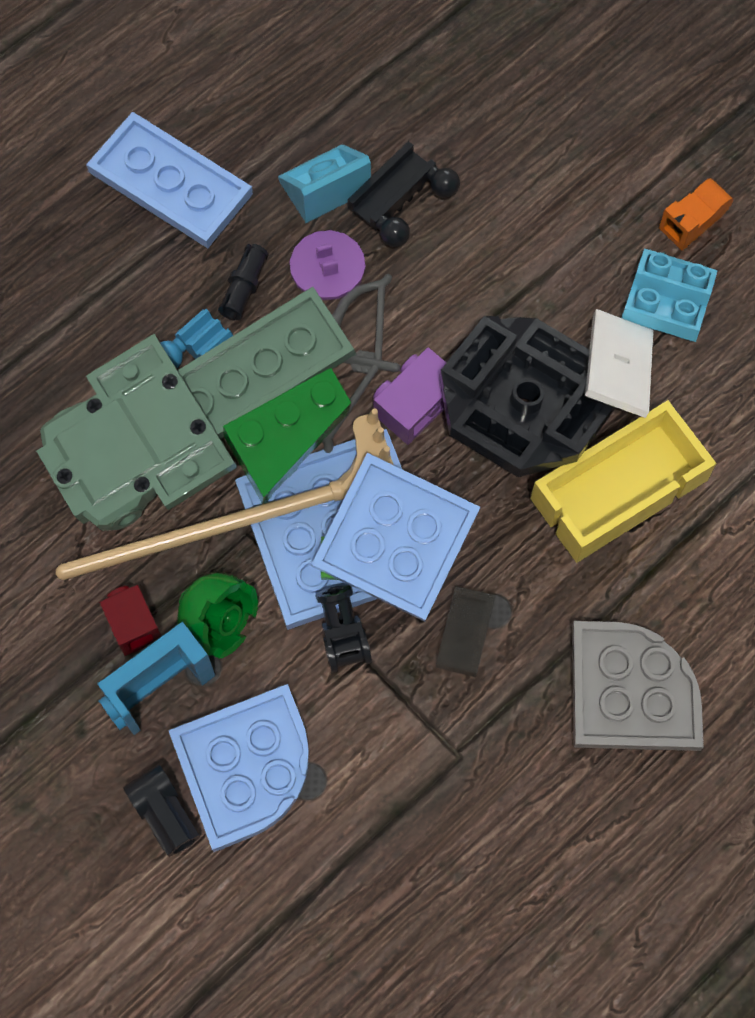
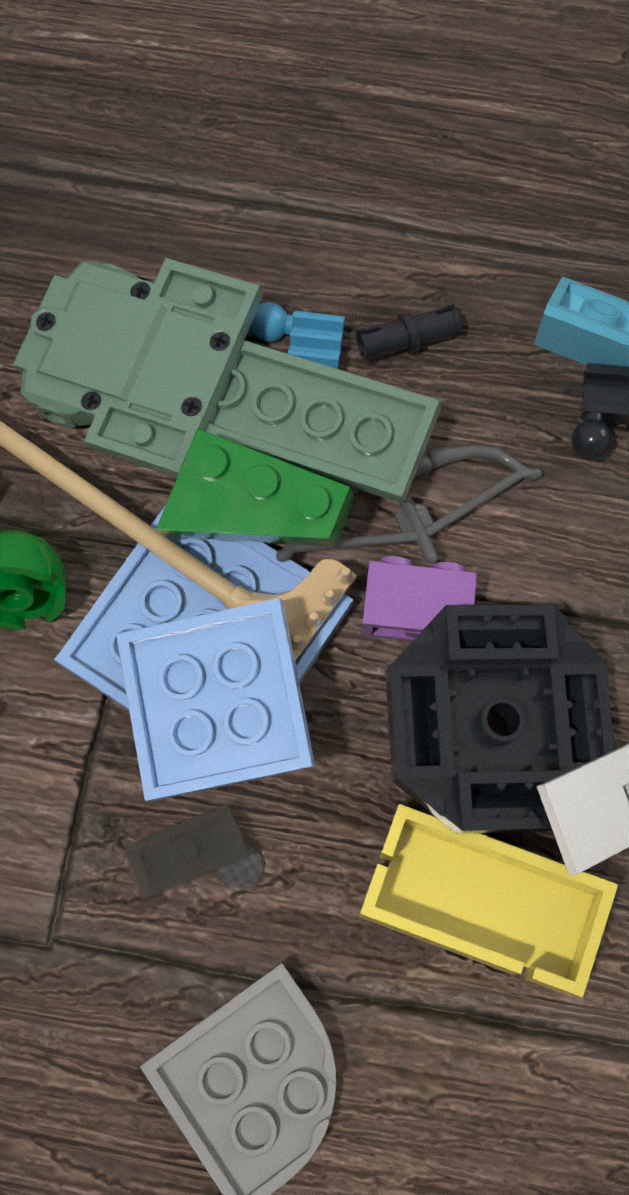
camera: 55 degrees right, 5 degrees up
(170, 179) = (466, 176): light blue plate -> none
(328, 263) = (502, 401): medium lavender piece -> none
(343, 635) = (87, 722): black connector -> none

